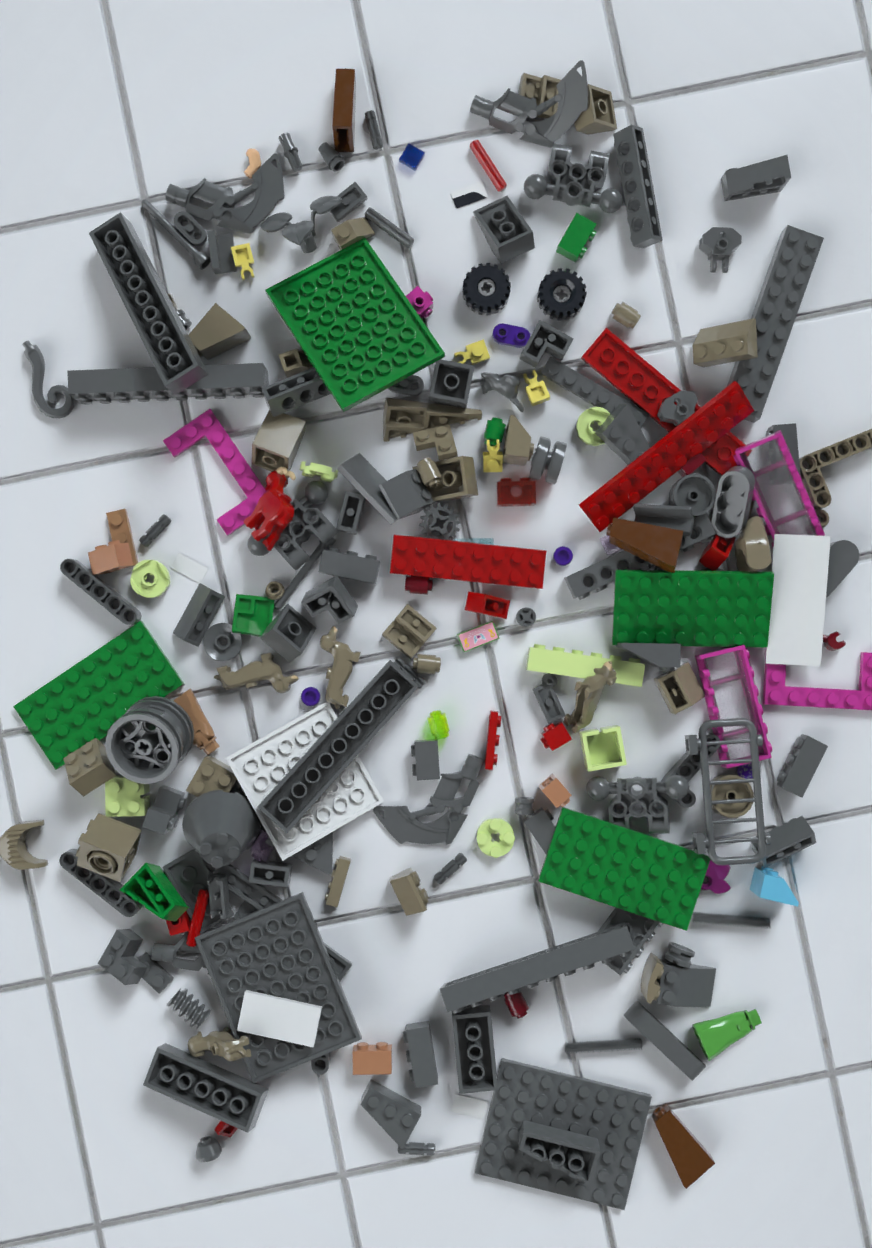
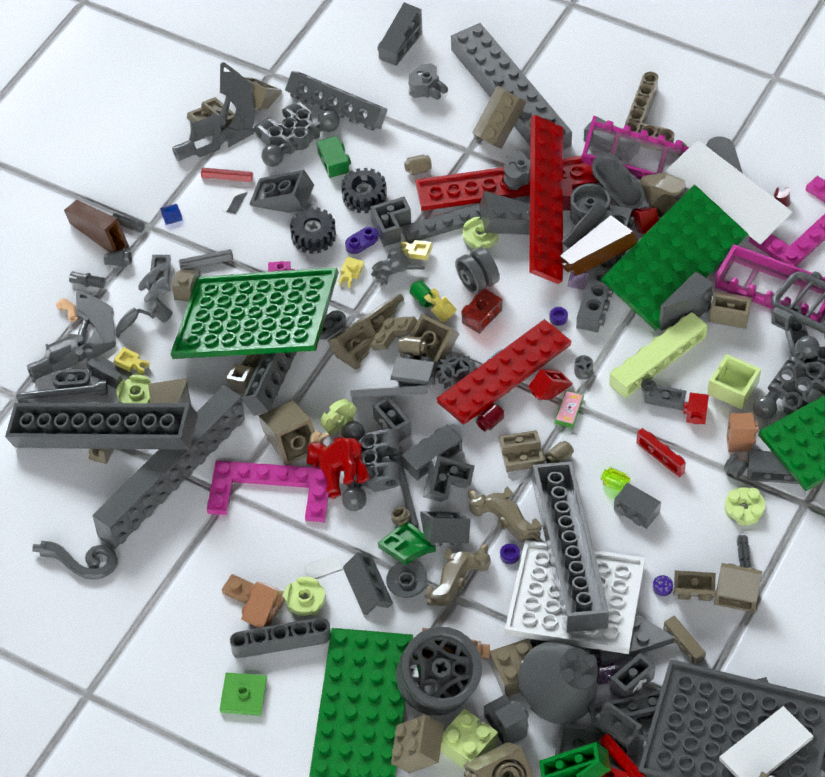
camera: 45 degrees left, 35 degrees down
(39, 603) = (243, 694): none -> bright green plate
(155, 530) = (270, 566): dark grey axle -> none
(222, 280) = (136, 382): none -> yellowish green plate
(373, 830) = (662, 585): none -> dark purple tile
(384, 859) = (695, 585): none -> dark tan bracket
(407, 828) = (705, 530): dark grey piece -> none
(451, 383) = (359, 292): dark grey brick -> none
(517, 444) = (446, 274): dark tan slope -> none
(589, 695) = (684, 359): dark tan animal -> none

